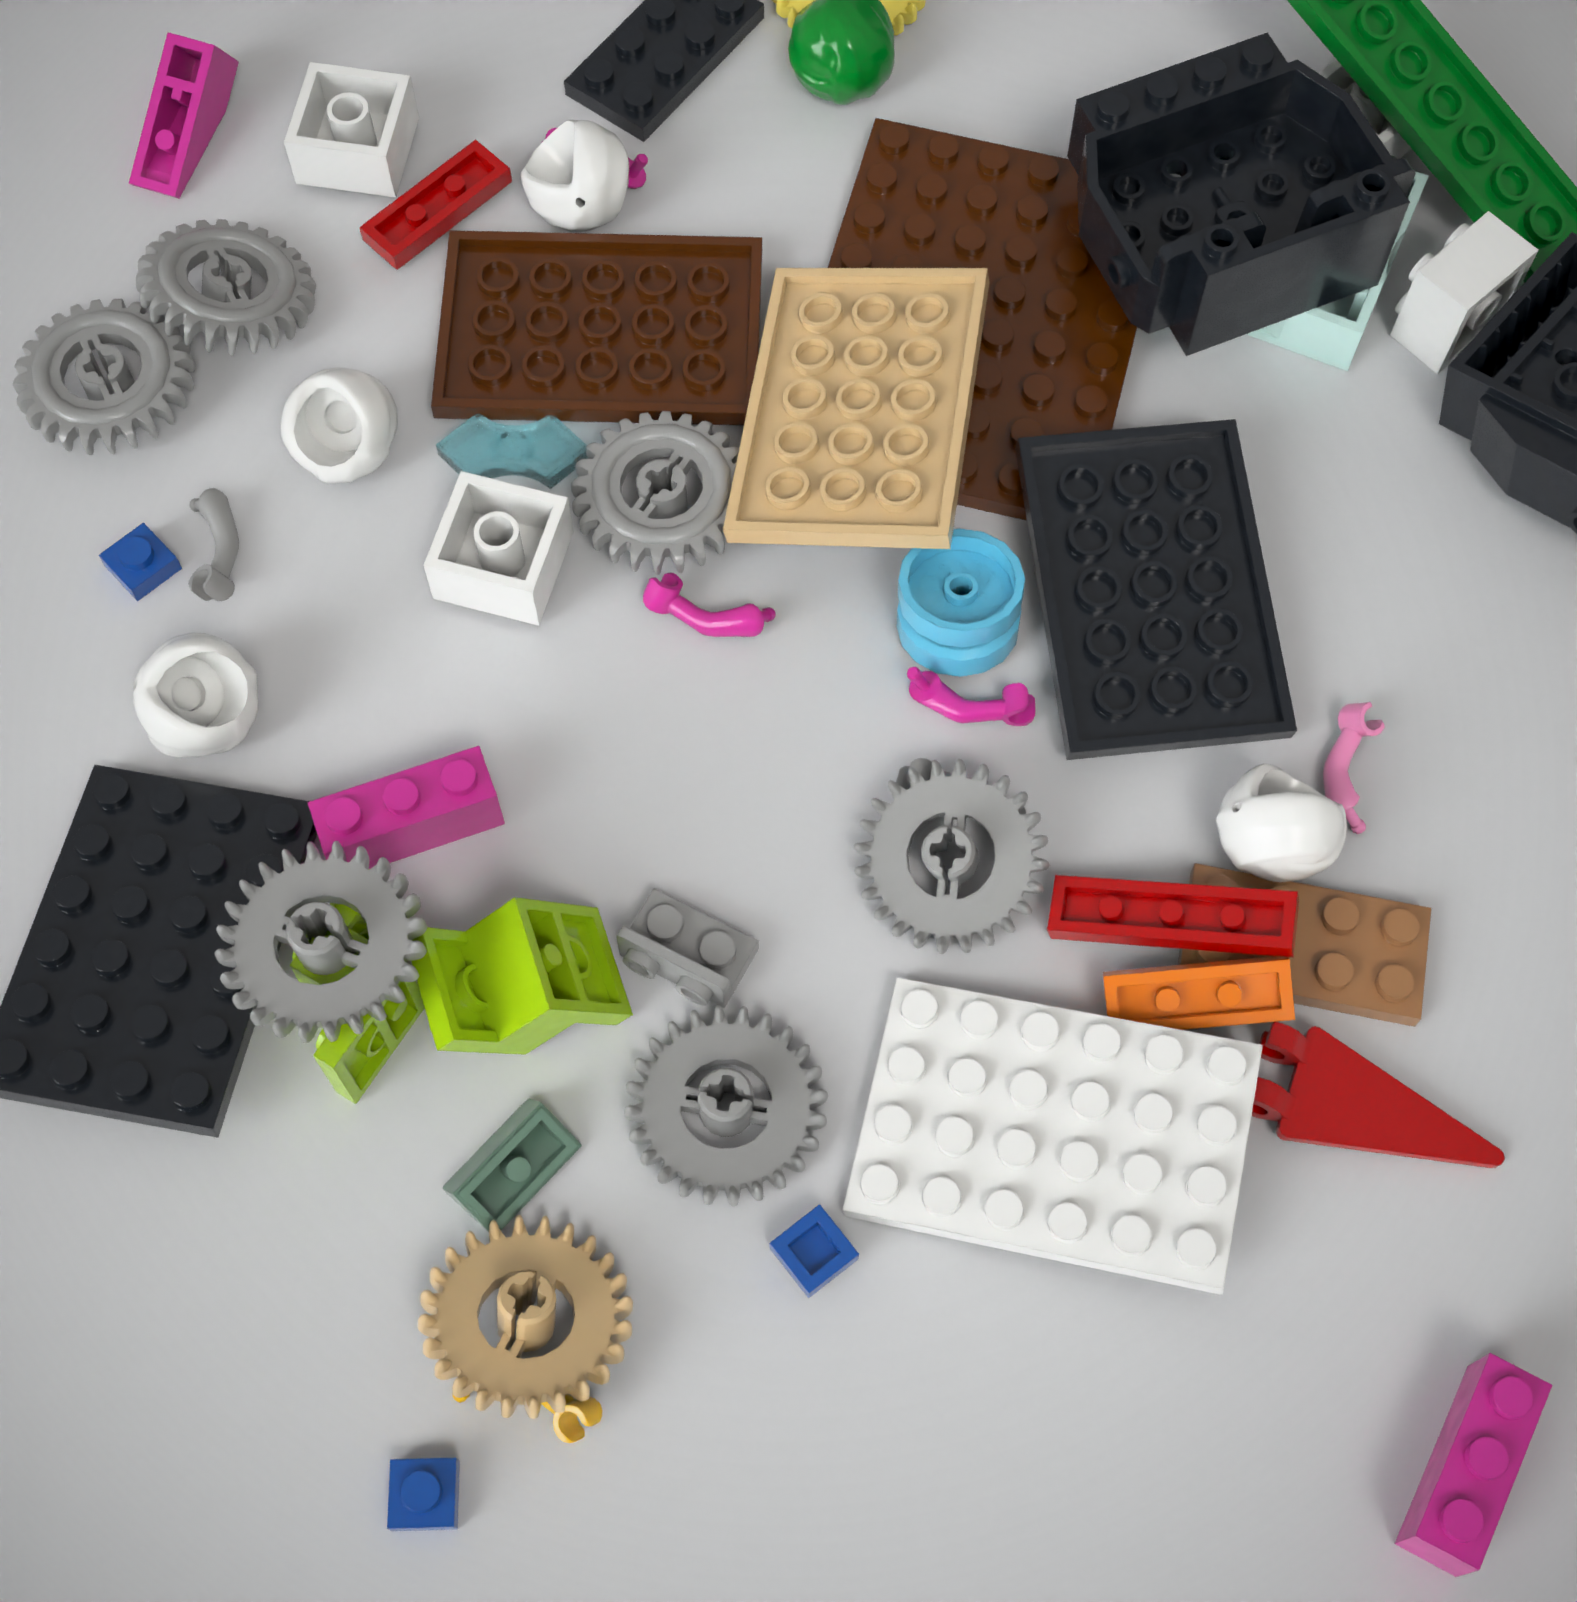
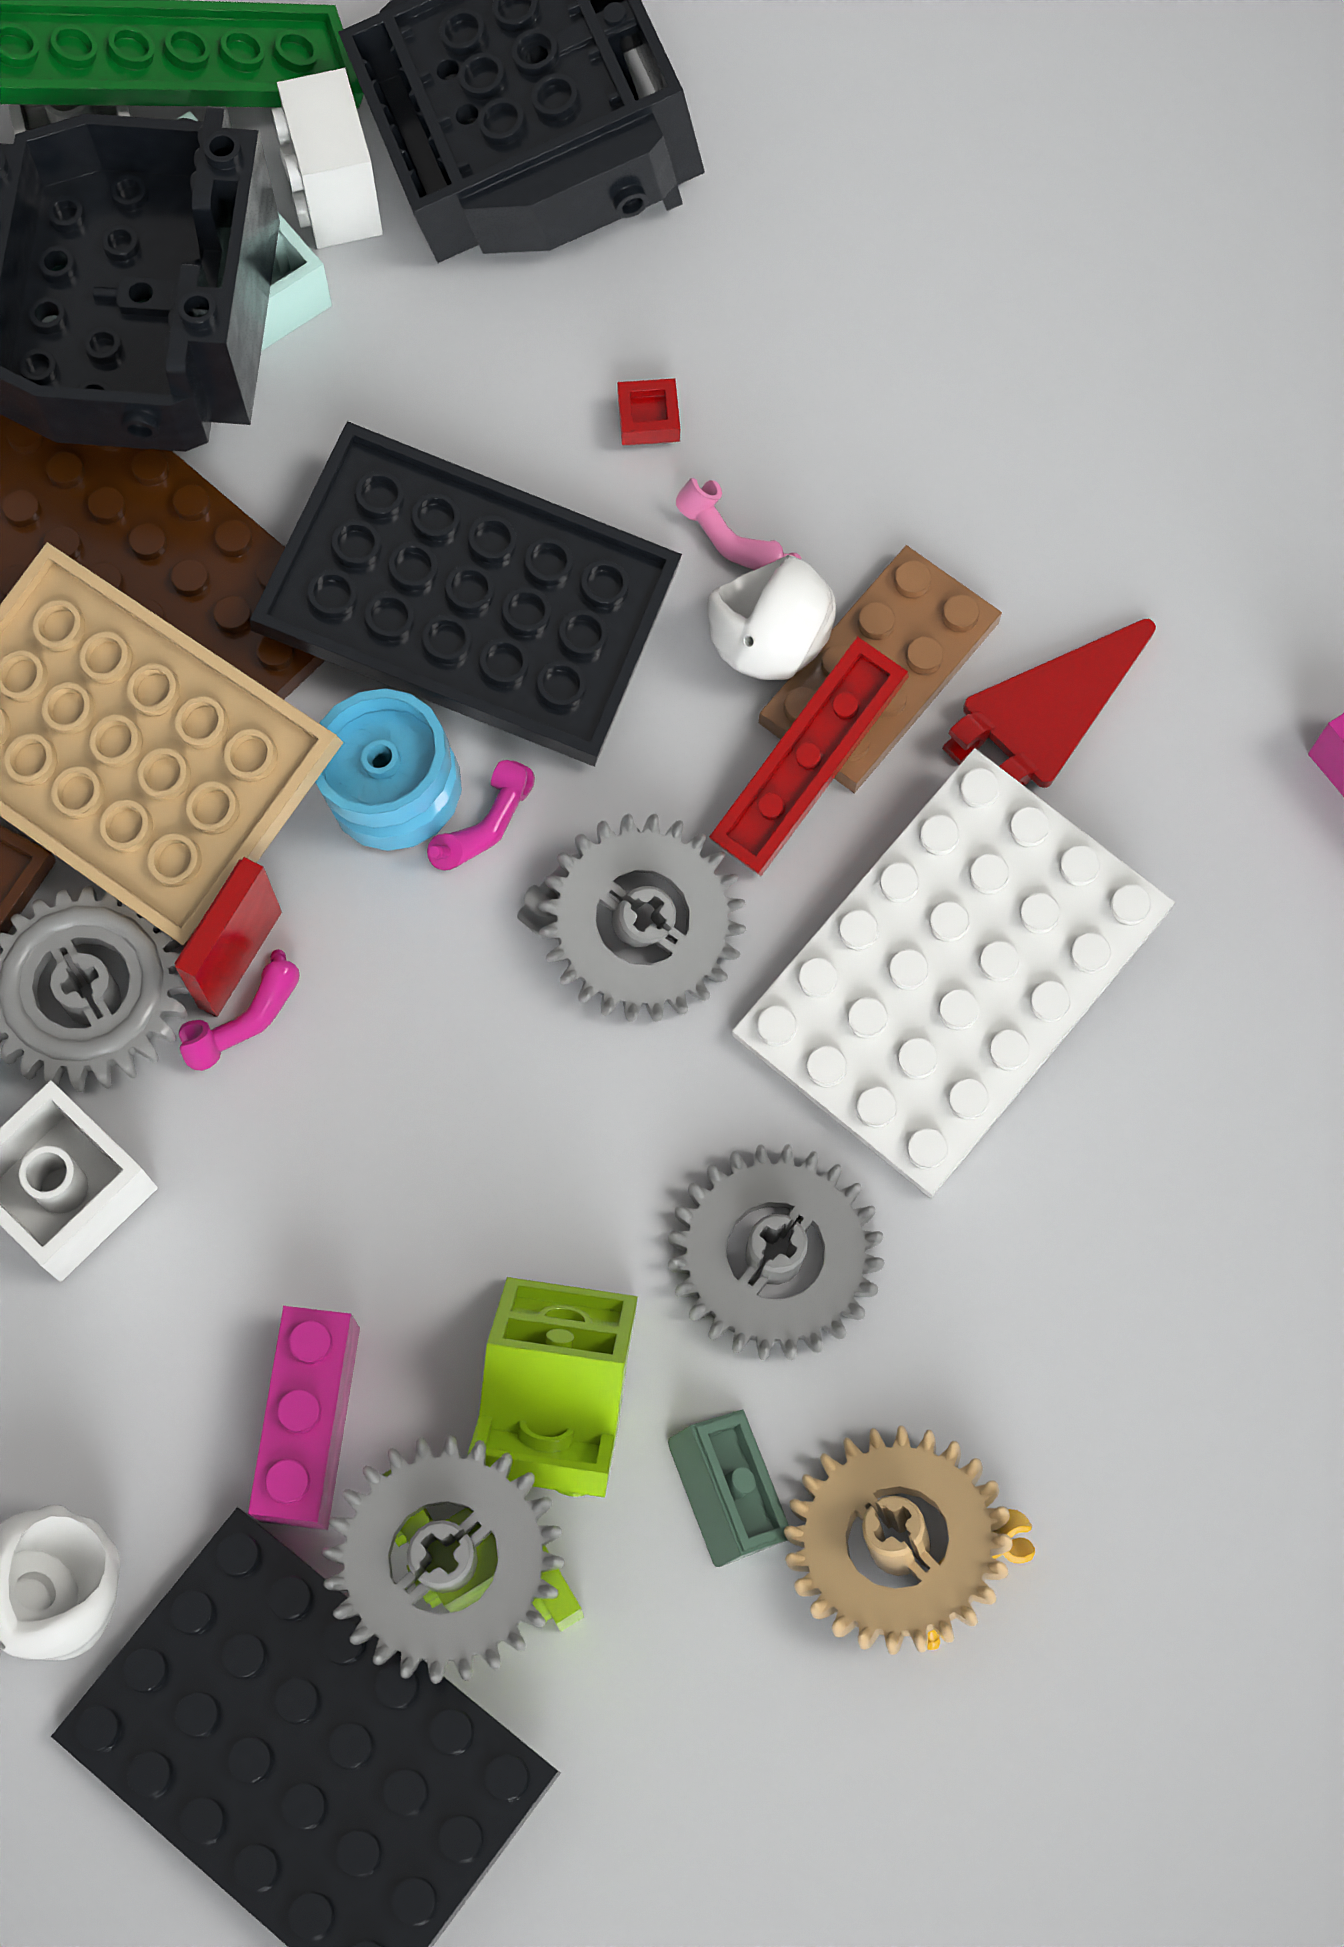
camera: 65 degrees left, 5 degrees up
(423, 1494) = (1014, 1720): blue plate -> none
(687, 949) = (597, 1211): light grey bracket -> none
(752, 561) = (228, 936): none -> red tile
(814, 1251) = (958, 1240): blue plate -> none
(1203, 993) = (892, 776): orange plate -> none
(1413, 643) = (648, 411): none -> red plate

